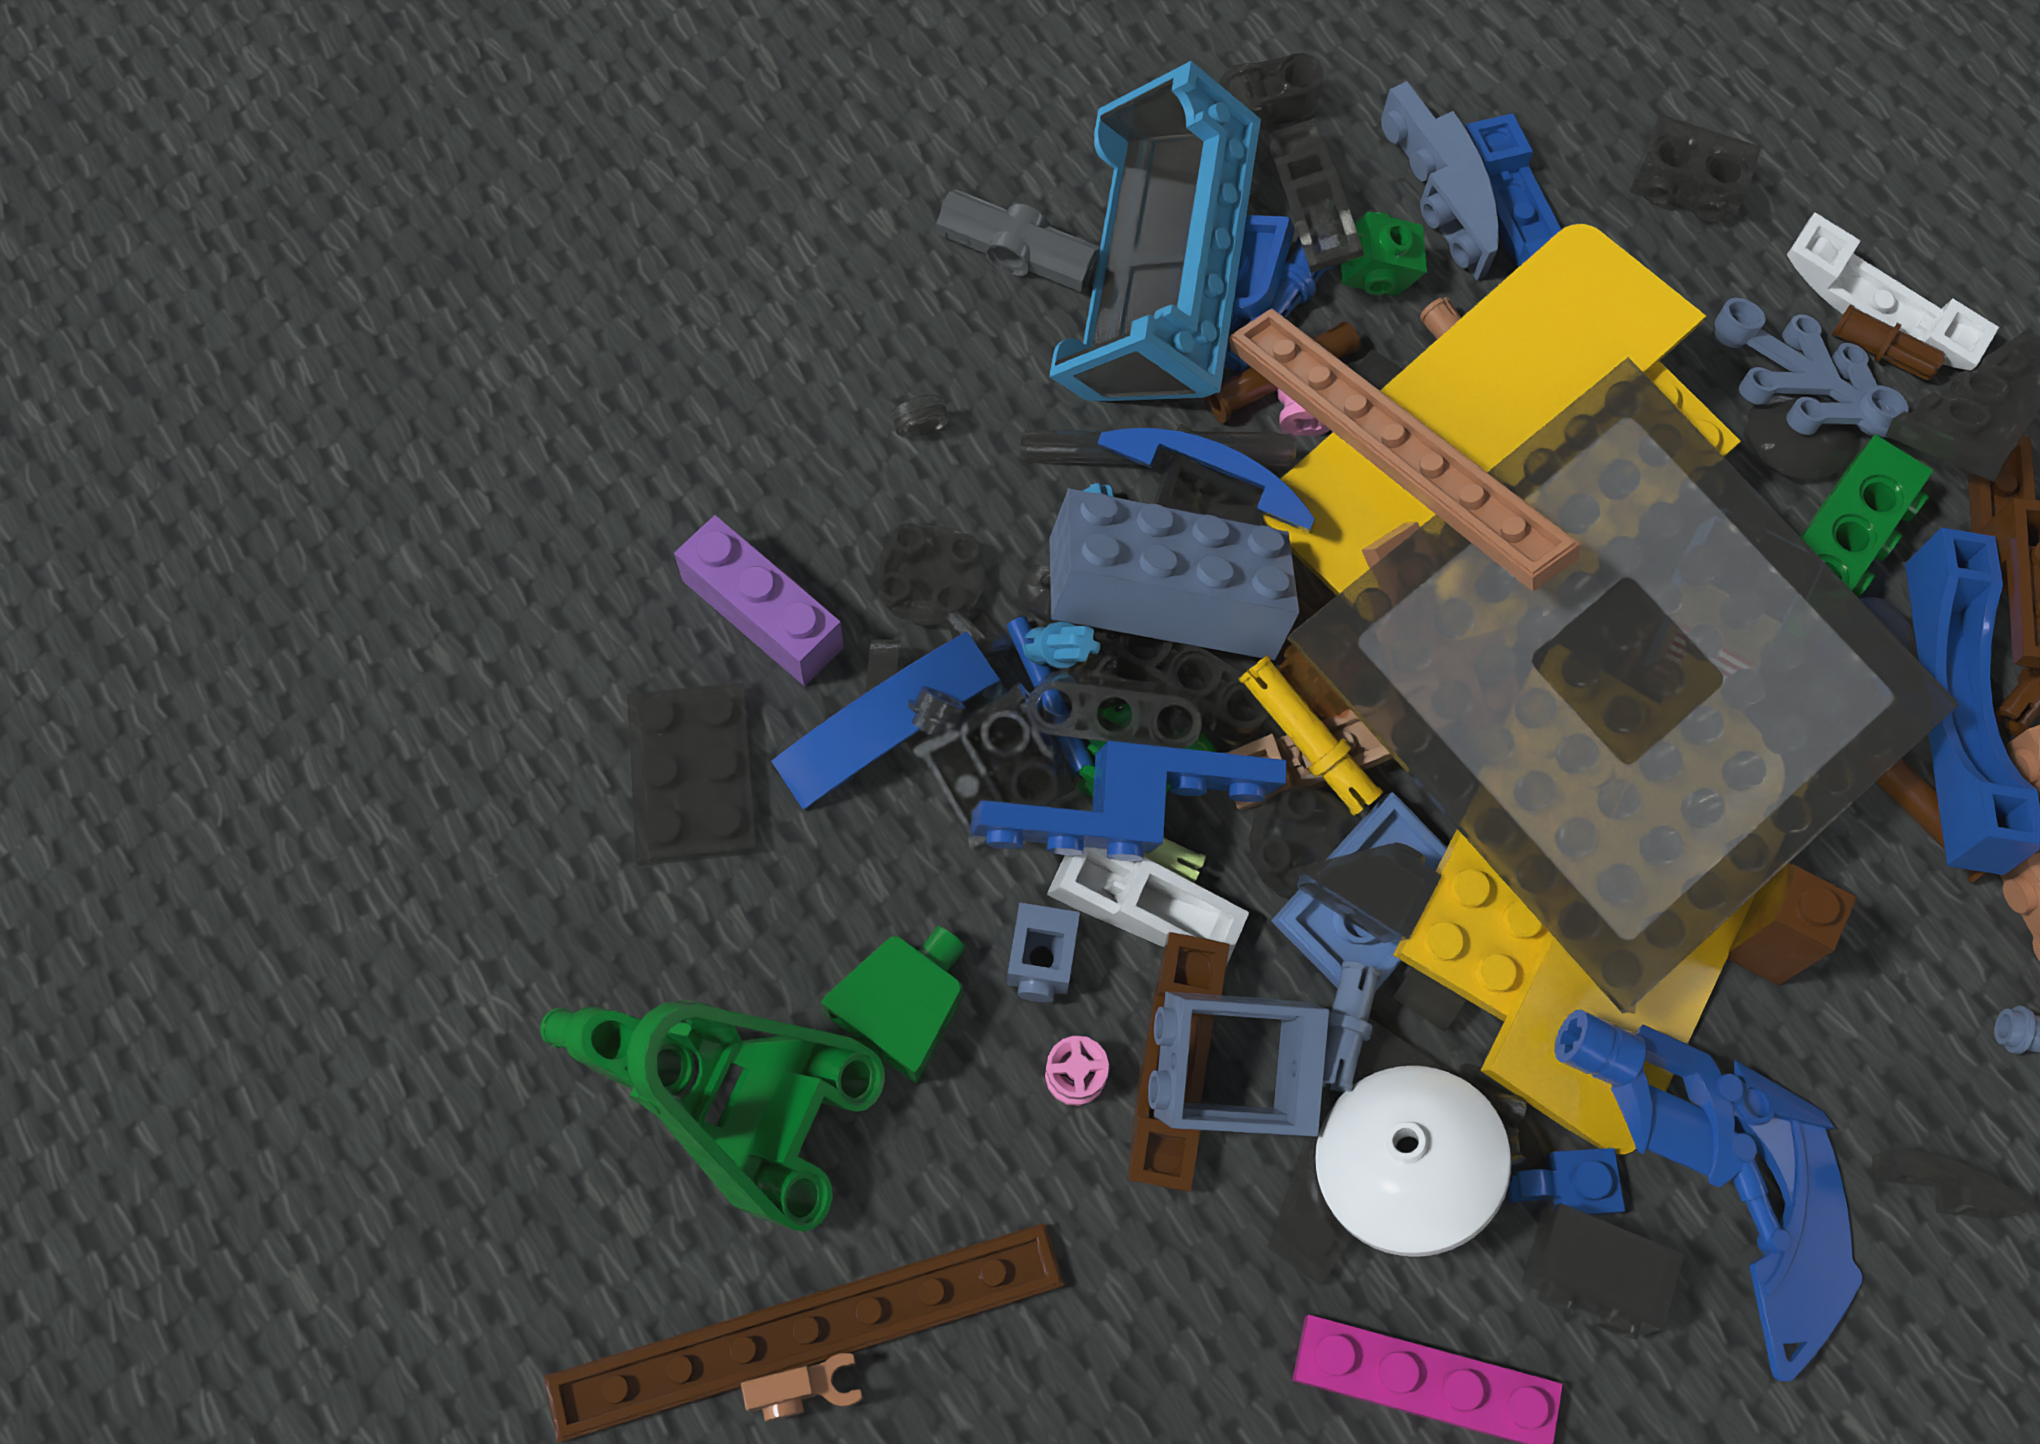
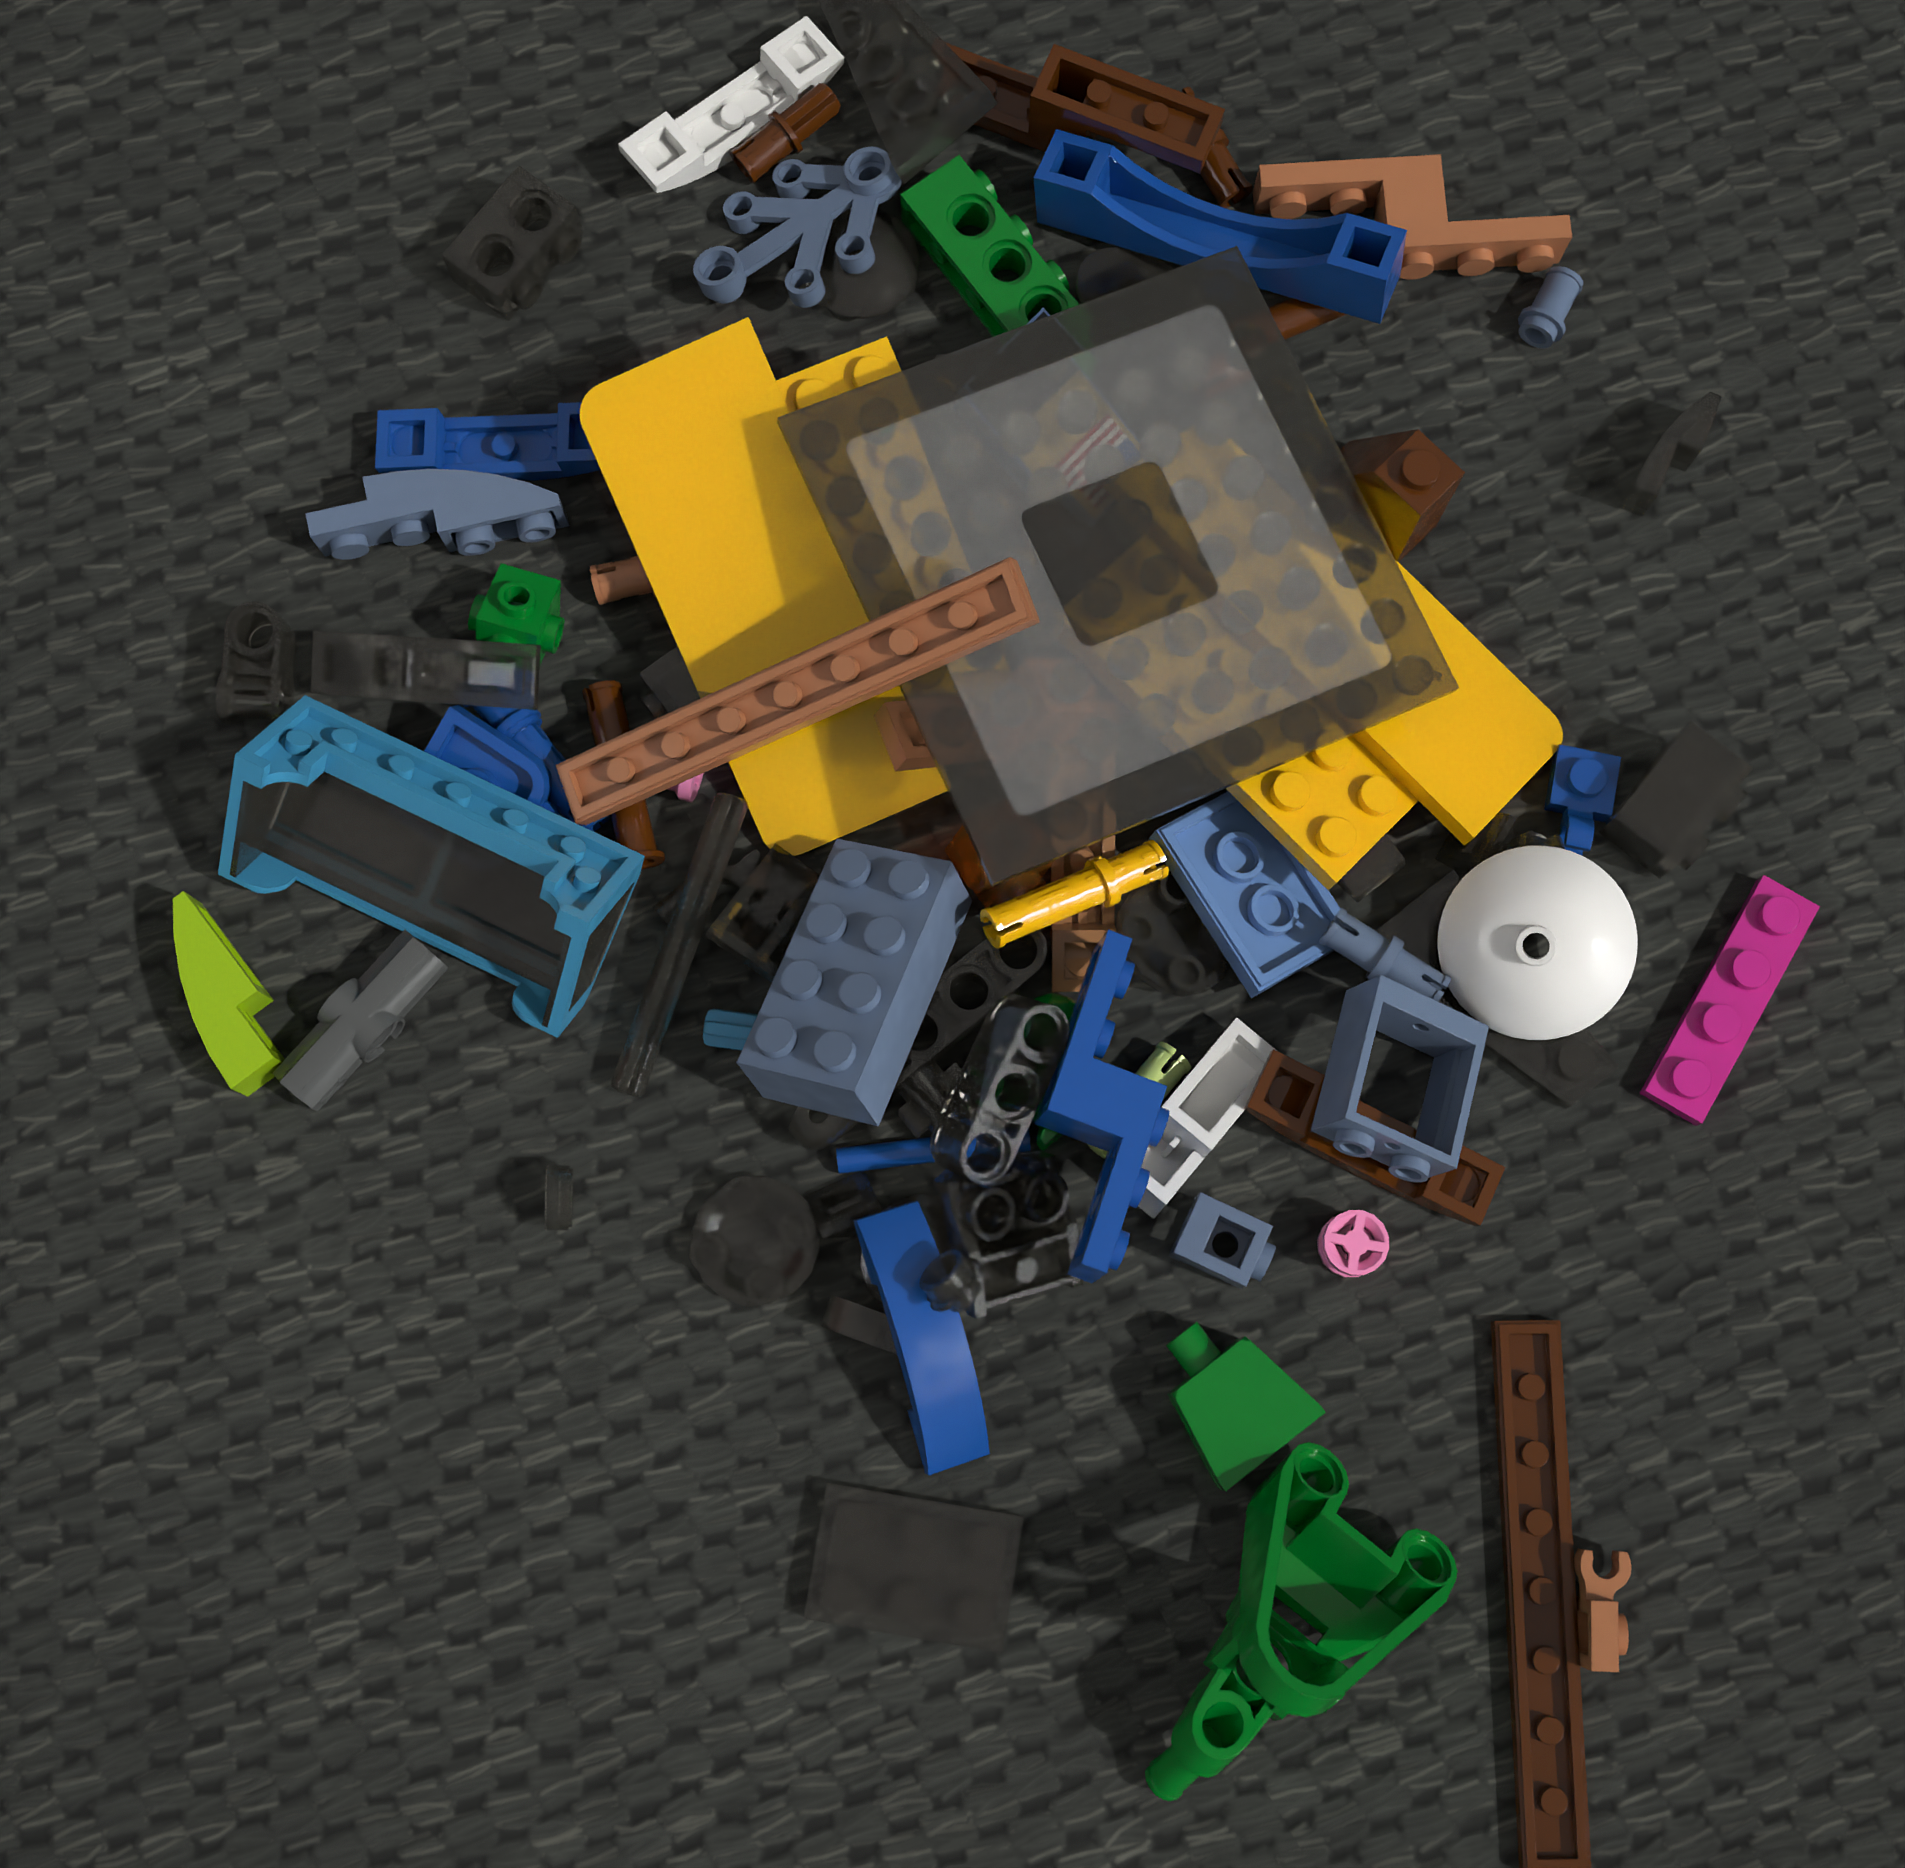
camera: 70 degrees left, 10 degrees up
(759, 600) = (737, 1441): medium lavender brick -> none
(1004, 140) = (223, 998): none -> lime slope
(1060, 644) = (905, 1124): dark azure axle -> none
(1144, 445) = (687, 960): blue slope -> none
(1372, 888) = (1256, 886): clear smoke slope -> none
(1807, 1258) = (1702, 607): blue piece -> none

